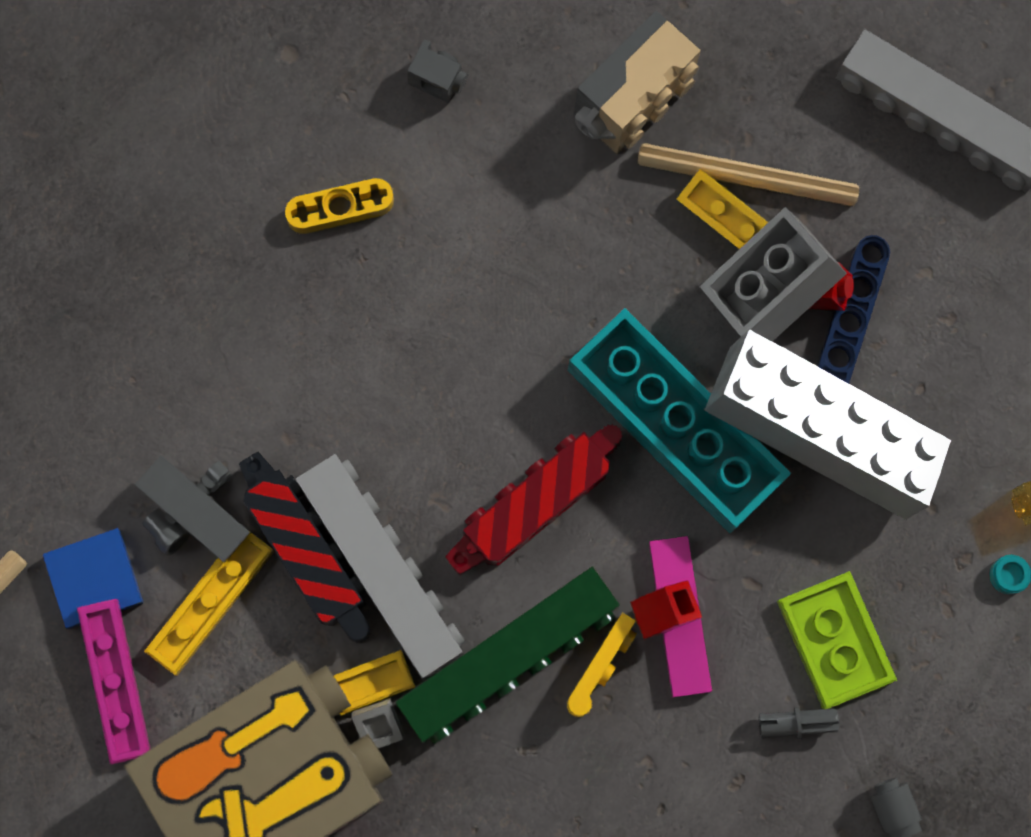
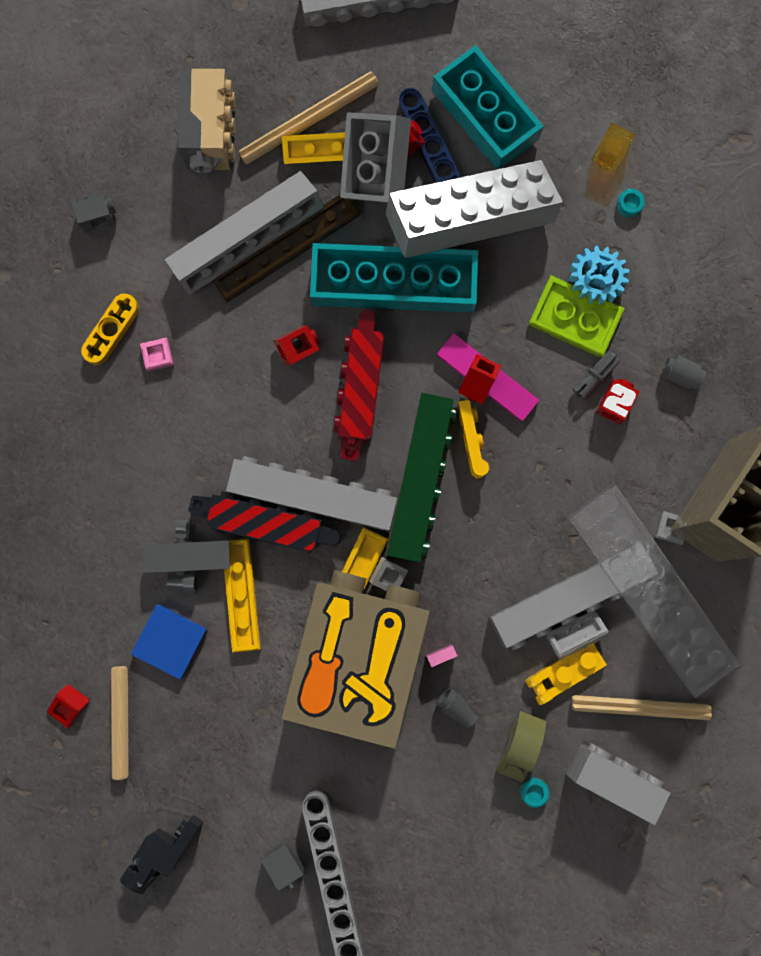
camera: 40 degrees left, 5 degrees up
(114, 680) = (231, 682): dark pink tile -> none
(362, 274) = (157, 354): none -> bright pink tile
(522, 409) = (308, 341): none -> red brick
(567, 233) = (244, 232): none -> light grey brick
(596, 285) = (286, 247): none -> dark brown tile
(795, 771) = (617, 400): none -> brick
(887, 628) = (601, 265): none -> medium azure gear
(944, 333) = (486, 107): none -> teal brick

